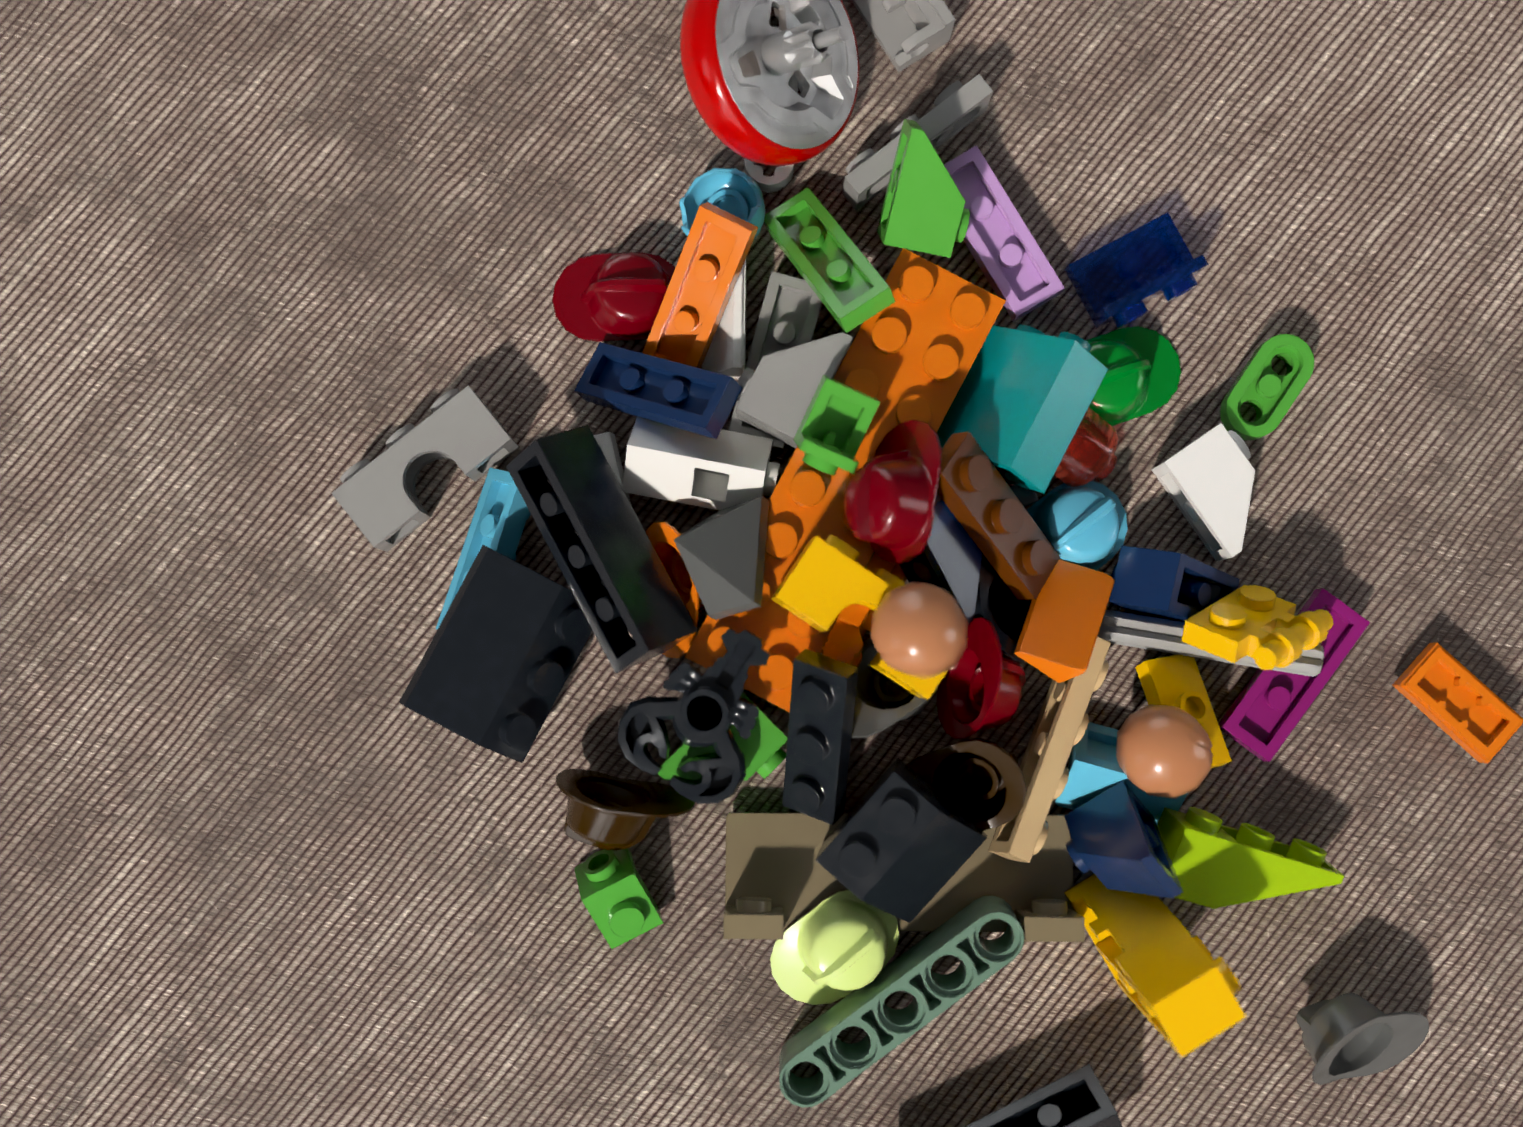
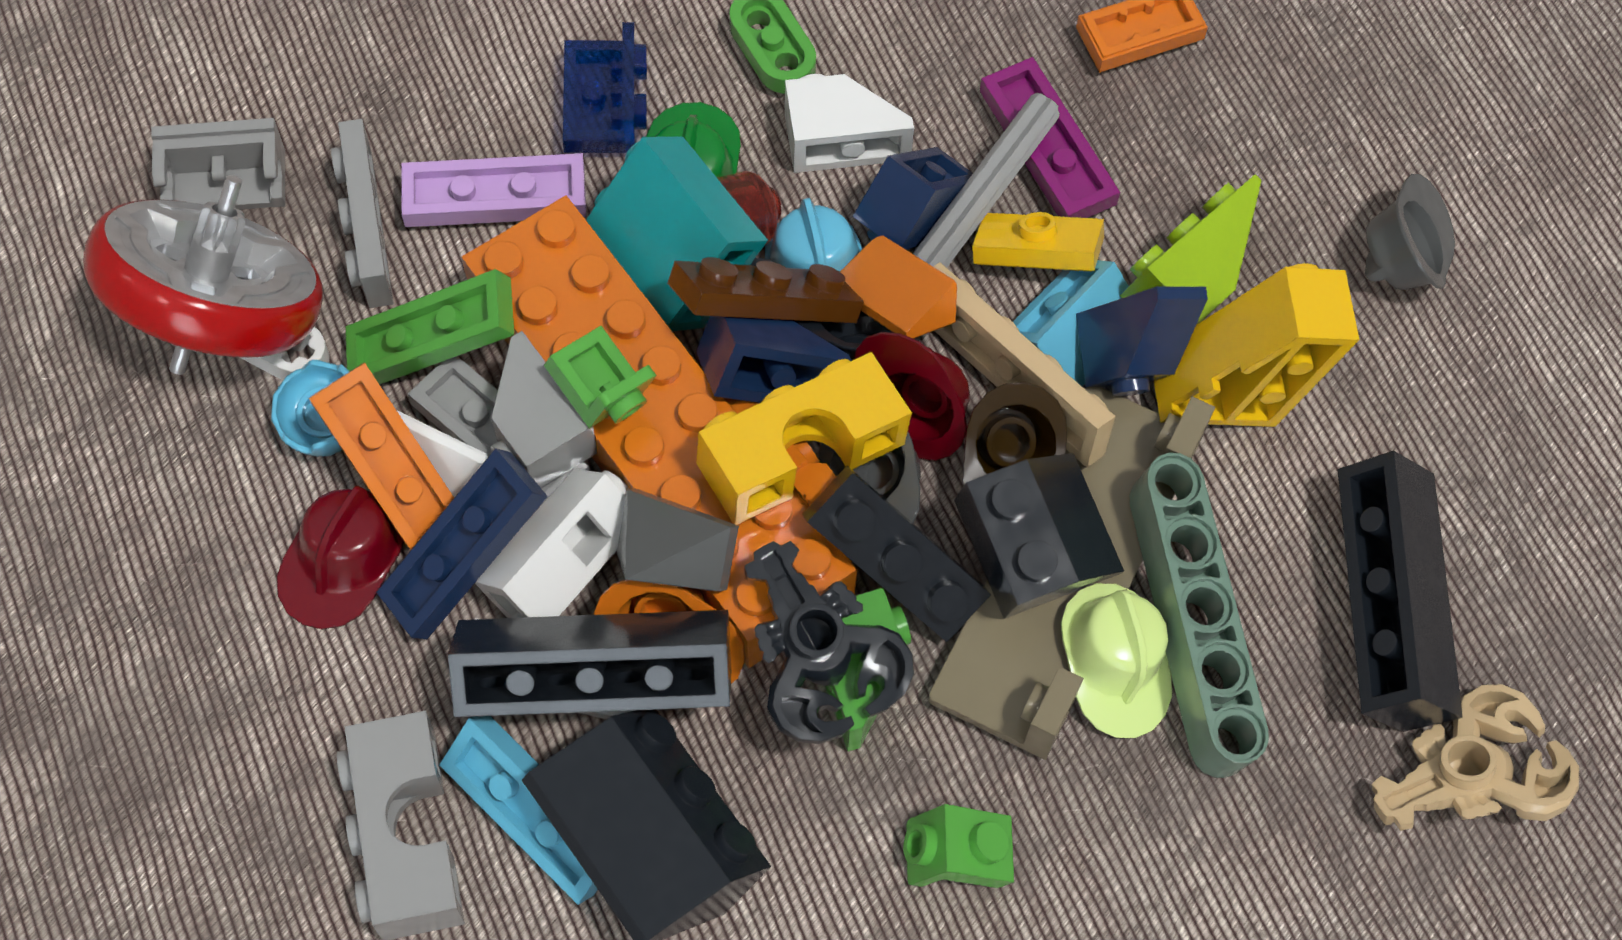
camera: 70 degrees left, 20 degrees down
(615, 810) = (872, 805): dark brown piece -> none
(896, 492) = (698, 349): dark red piece -> none
(919, 630) = (841, 380): nougat hair -> none
(921, 201) = (420, 216): bright green slope -> none
(1164, 751) = (1065, 259): nougat hair -> none
(1256, 625) = (983, 139): yellow plate -> none

